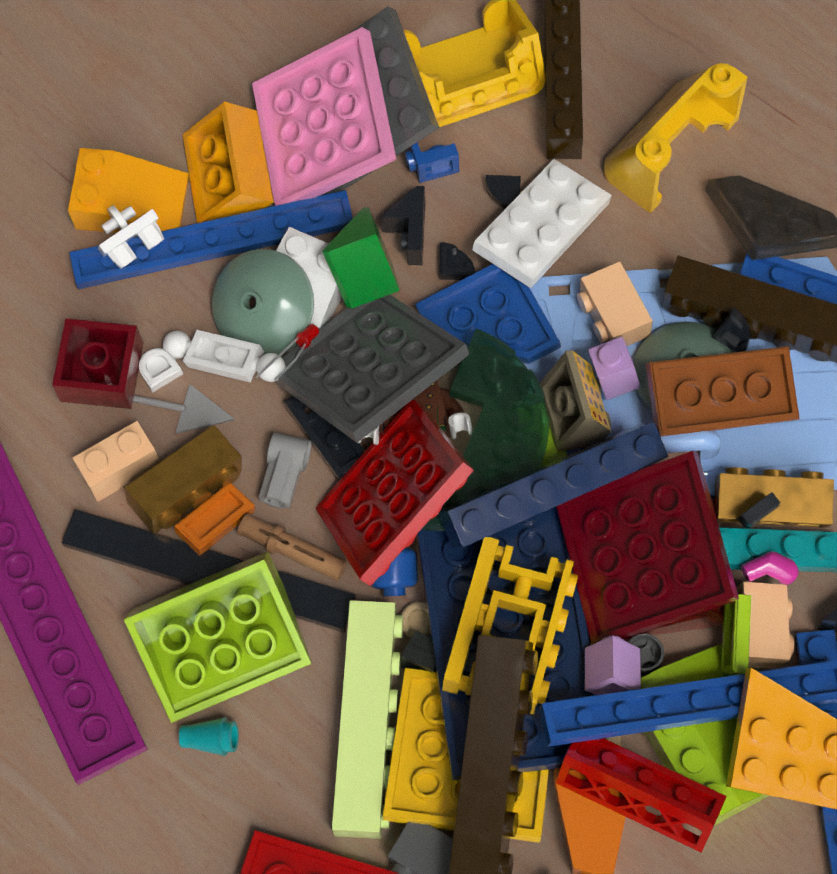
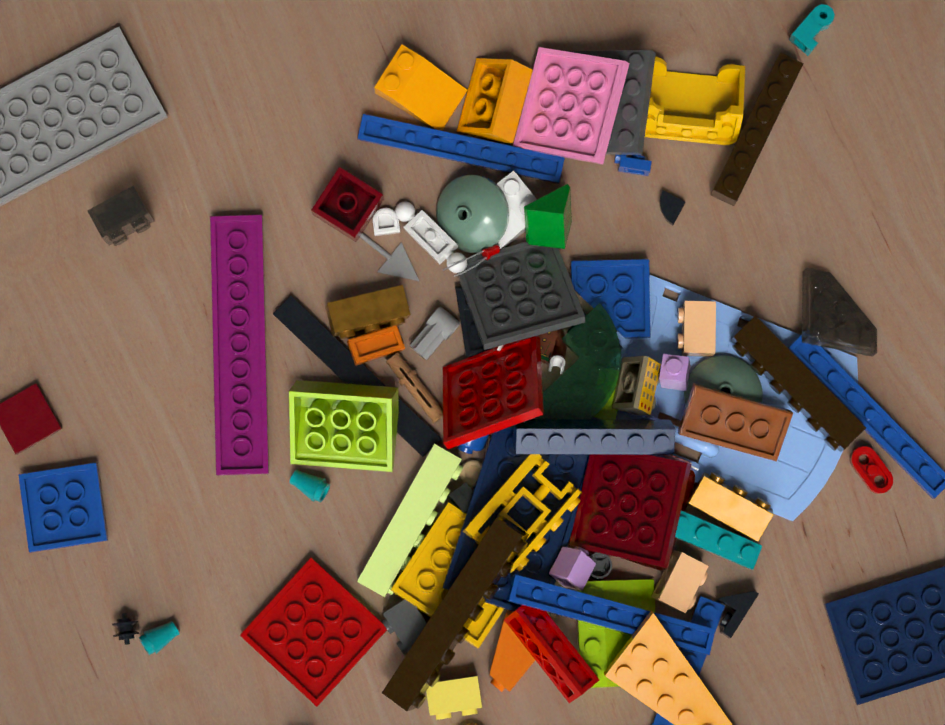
camera: 20 degrees right, 15 degrees up
(116, 461) = (330, 277): light nougat brick -> none
(144, 228) = (395, 127): white hips -> none
(408, 219) = (598, 196): black slope -> none
(454, 263) = (612, 242): black tile -> none
(541, 223) = (681, 245): white plate -> none
(701, 100) = (765, 227): yellow windscreen -> none
(733, 331) = (763, 385): black tile -> none
(736, 636) = (659, 584): lime tile -> none
(759, 511) = (714, 513): black tile -> none
(771, 564) = (704, 551): dark pink arm -> none

